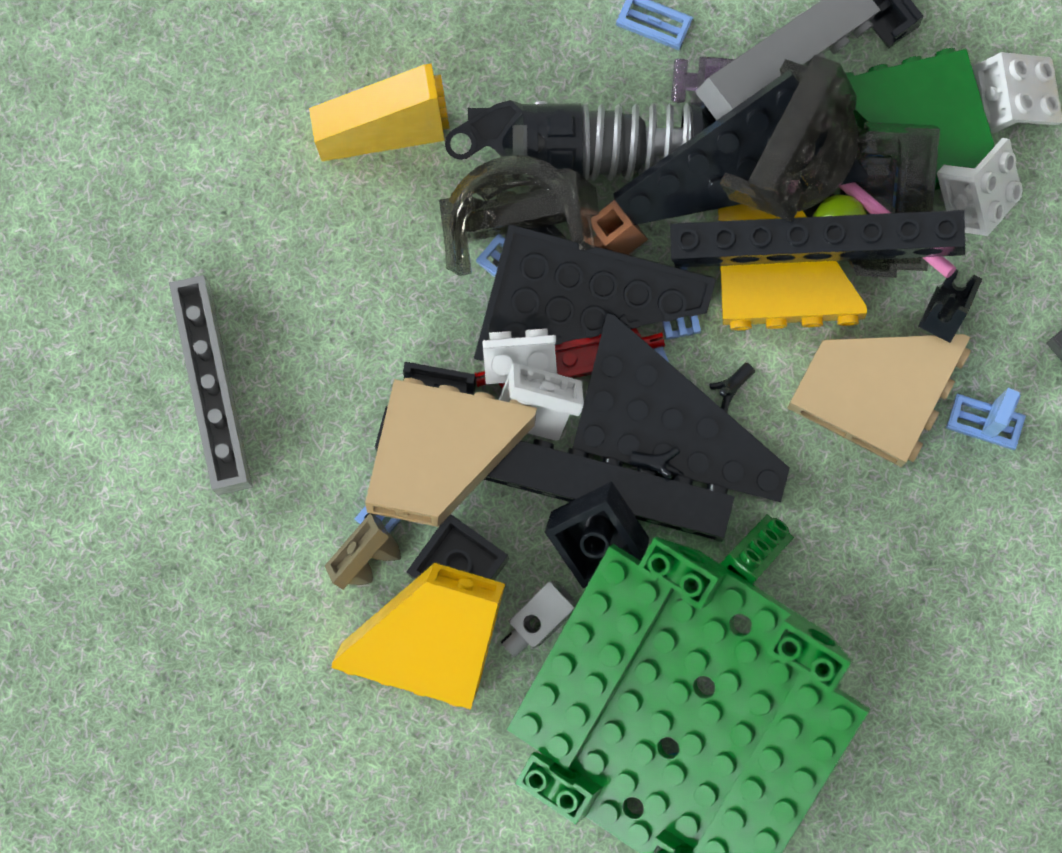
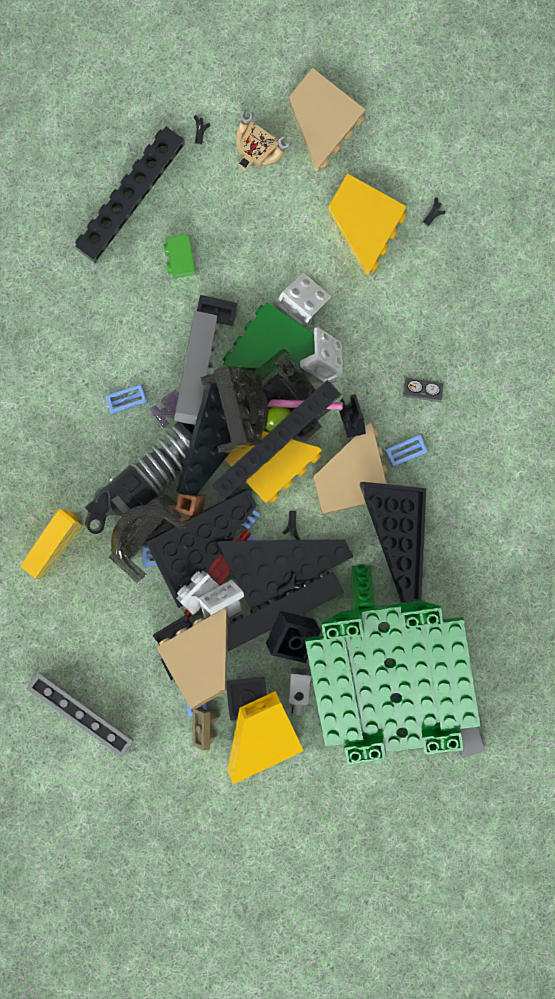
camera: 50 degrees left, 5 degrees up
(885, 516) = (400, 527): none -> black wing
(1001, 413) = (410, 445): light blue tile -> none

